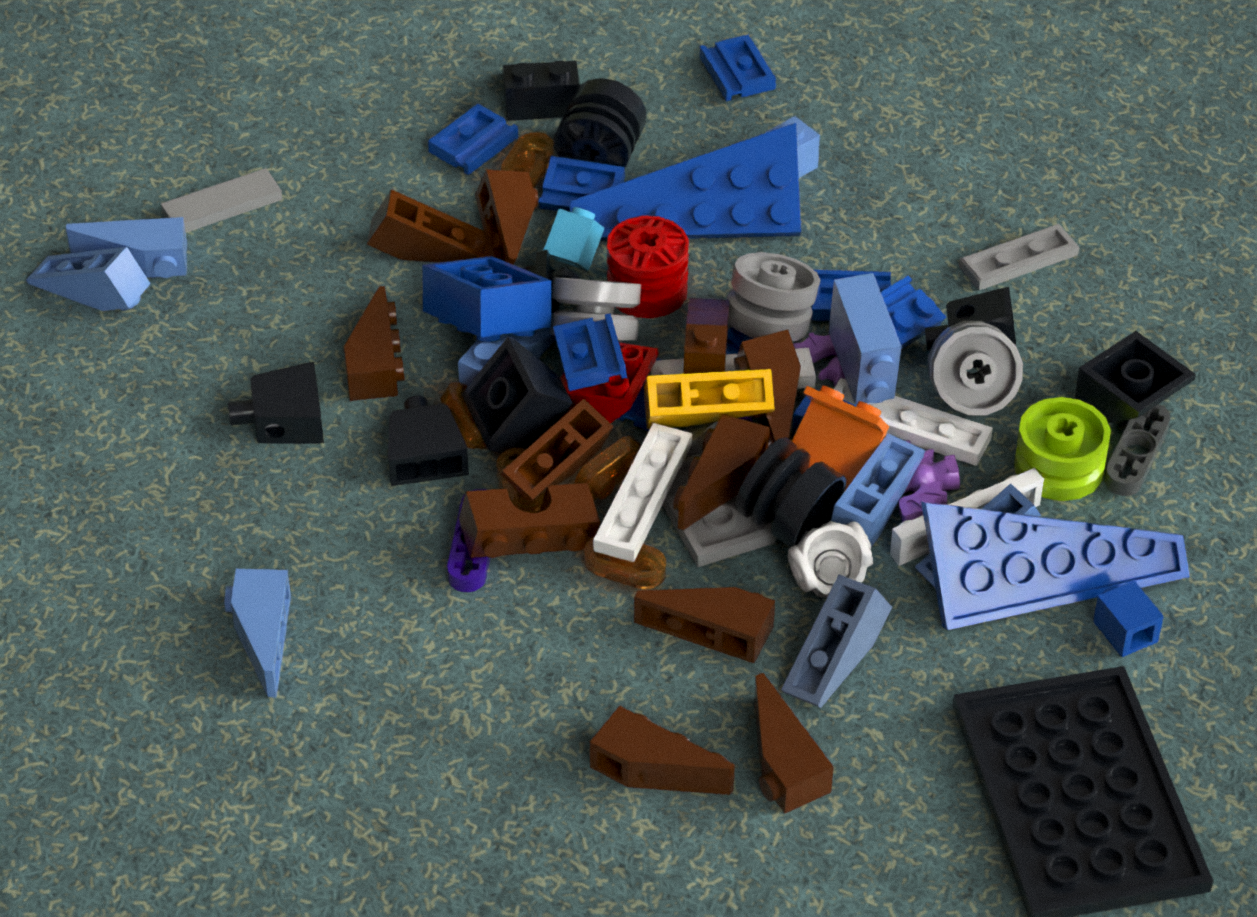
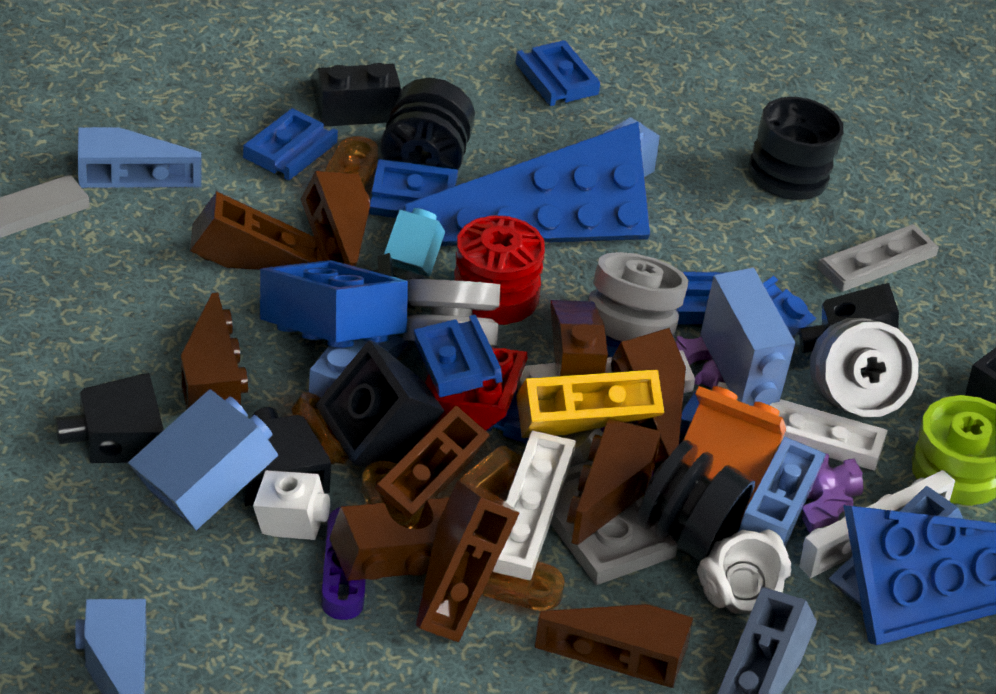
camera: 10 degrees left, 5 degrees down
(323, 154) = (133, 160): none -> medium blue slope
(354, 442) = (204, 457): none -> medium blue brick
(428, 487) = (291, 505): none -> white brick
(571, 541) = (462, 558): none -> reddish brown slope
(952, 147) = (795, 148): none -> black wheel

